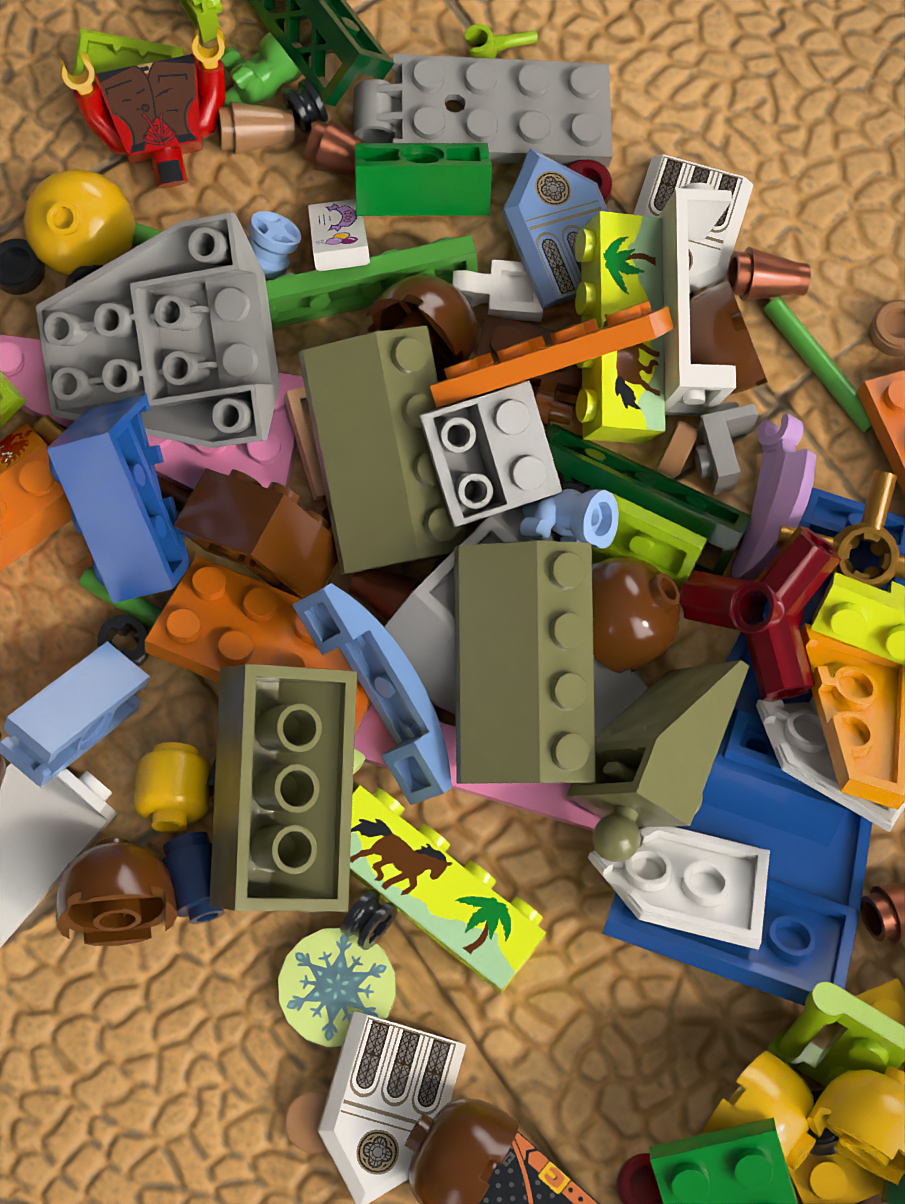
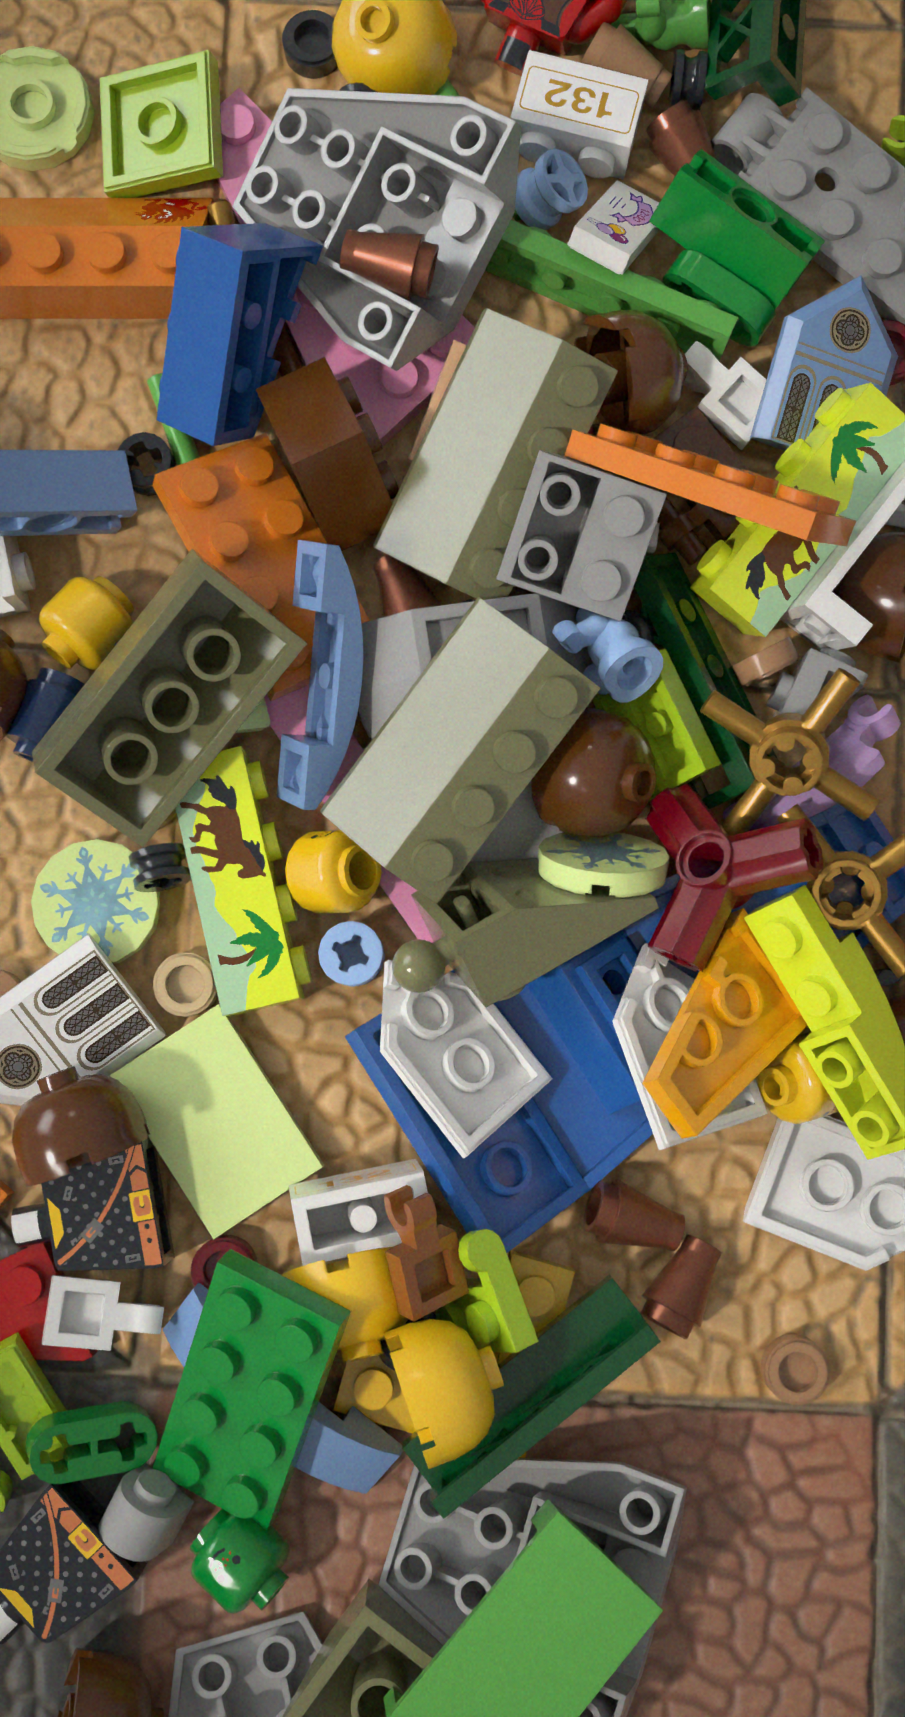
camera: 35 degrees right, 10 degrees up
(208, 367) = (391, 260): none -> copper cone
(249, 177) = (579, 111): none -> white brick
(426, 226) = (706, 280): none -> green beam
(451, 995) = (185, 984): none -> tan tile
(496, 824) = (331, 873): none -> yellow head
(556, 886) = (361, 958): none -> light blue wheel
(557, 1076) = (218, 1121): none -> yellowish green tile
(686, 661) = (617, 860): none -> yellowish green tile
(714, 1052) = (348, 1210): none -> white brick
(736, 479) = (783, 731): none -> pearl gold bar
(795, 1041) = (427, 1262): none -> dark orange plate

